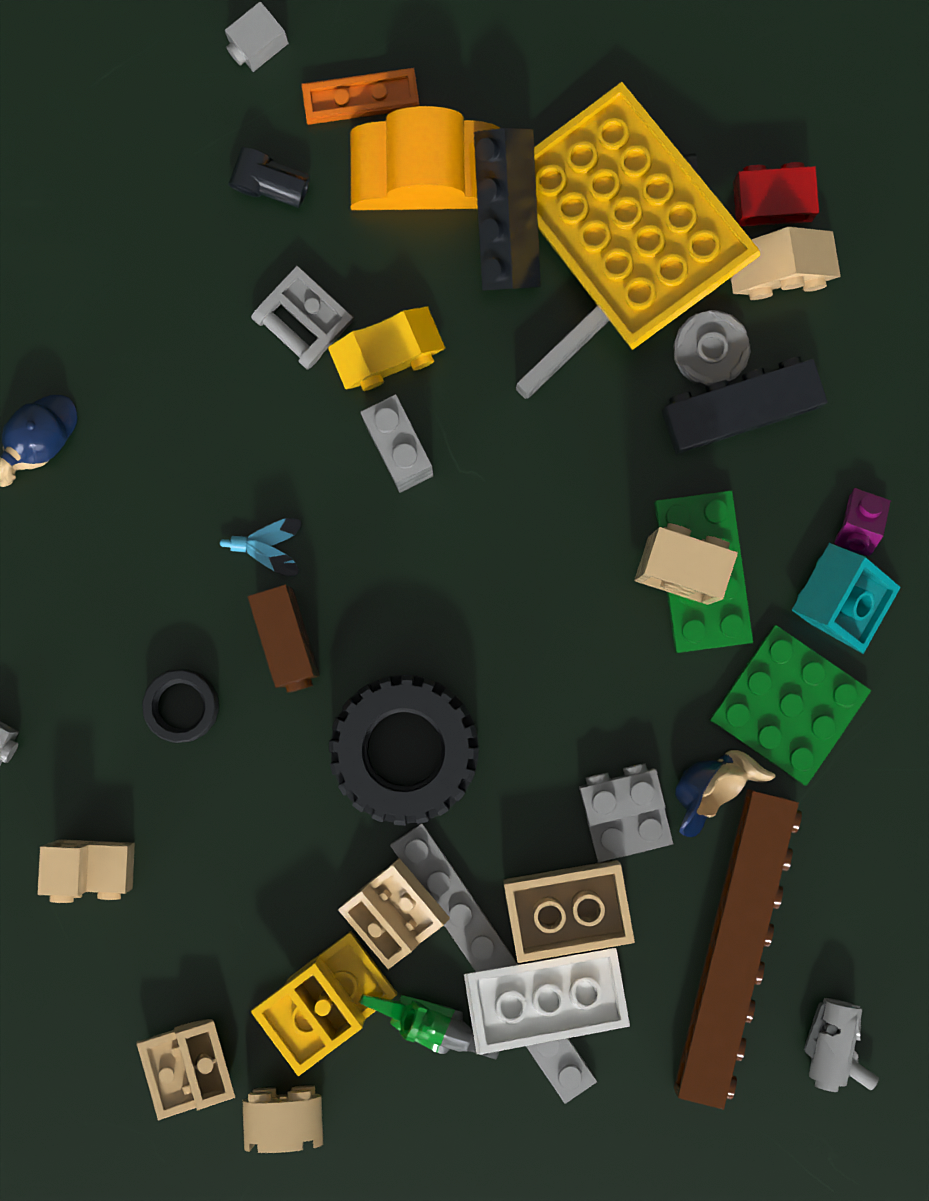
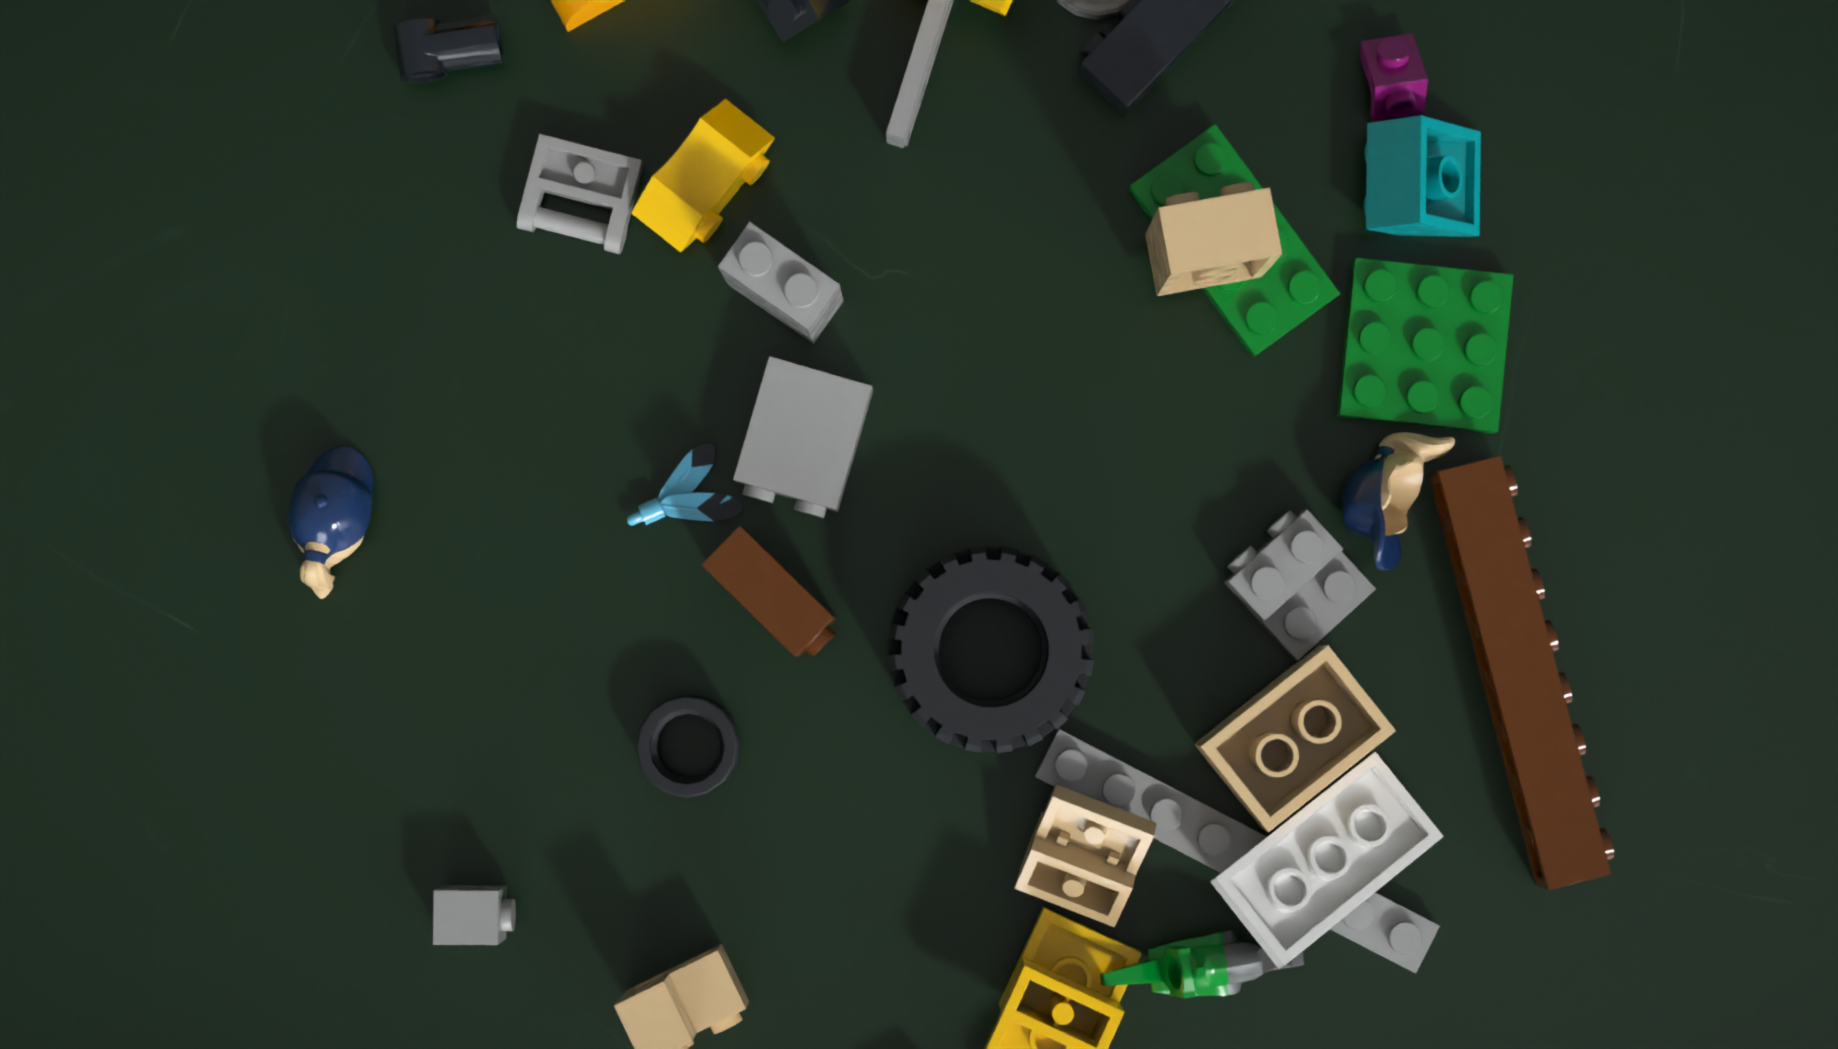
camera: 35 degrees left, 0 degrees up
(359, 549) = (802, 436): none -> light grey brick
(833, 1045) = (1699, 728): light grey piece -> none

